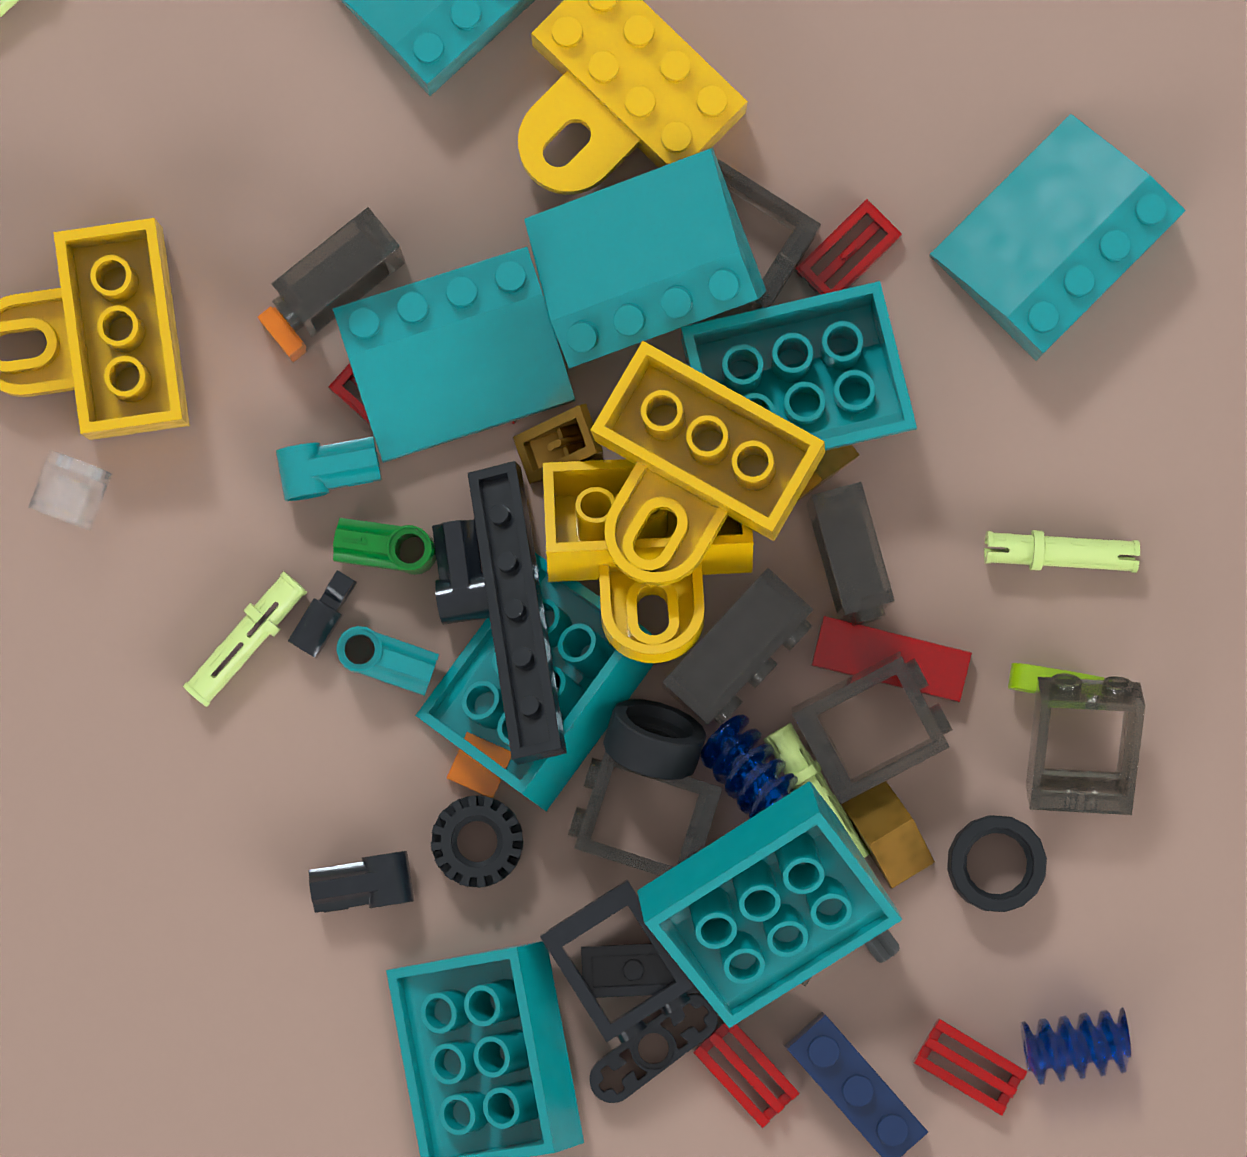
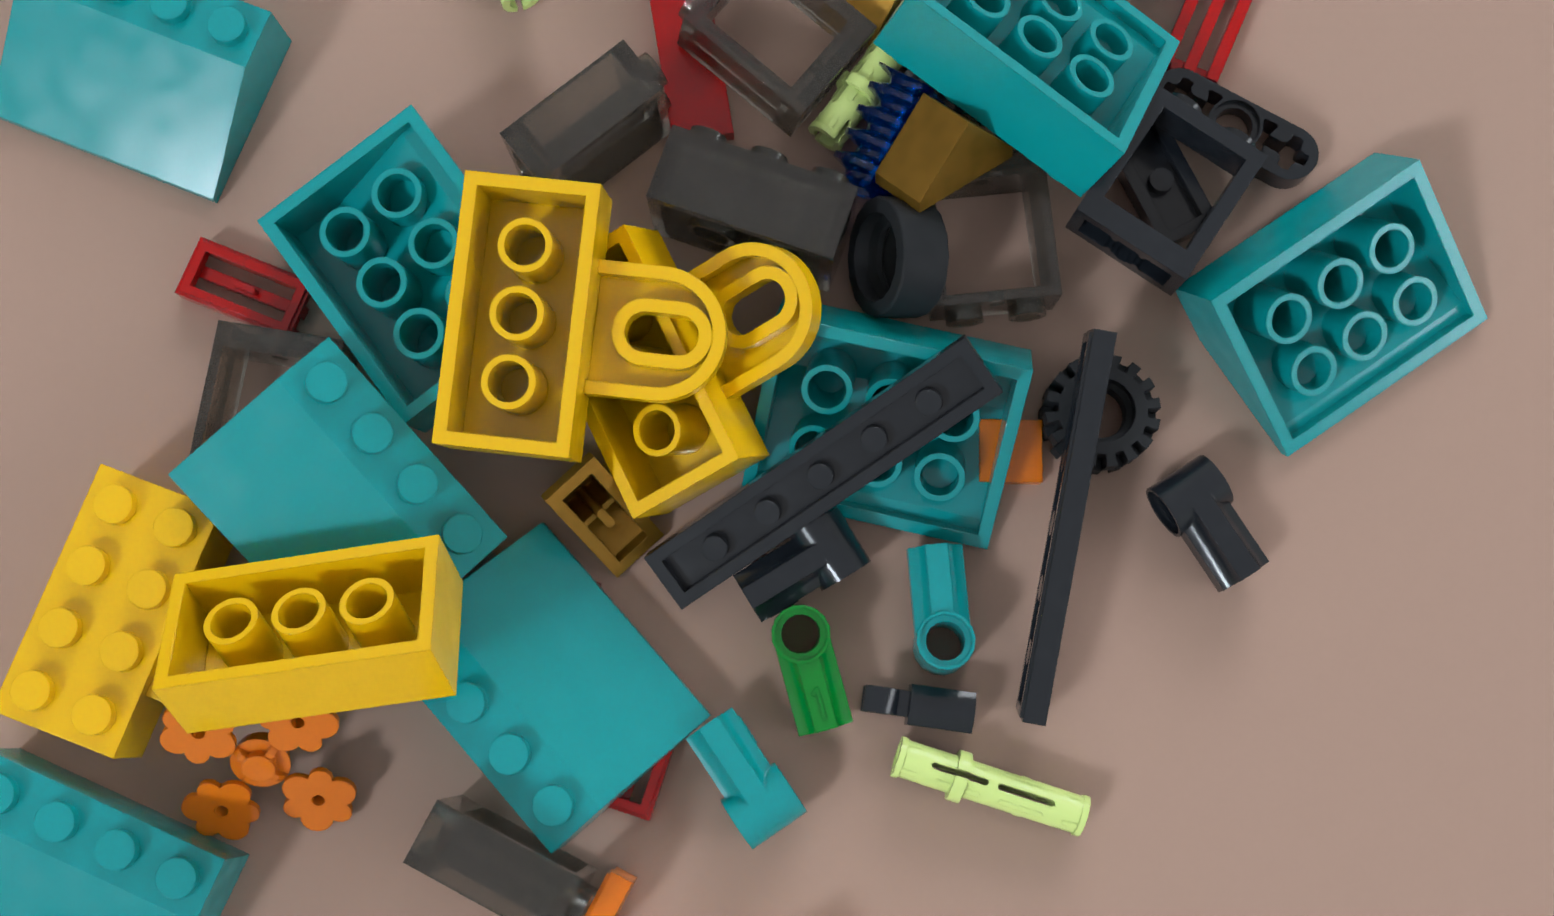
camera: 110 degrees left, 5 degrees down
(404, 771) = (1065, 525): none -> black tile
(487, 132) = (261, 761): none -> orange plant
(549, 207) = (311, 635): none -> yellow brick
(712, 796) = (937, 155): none -> pearl gold slope

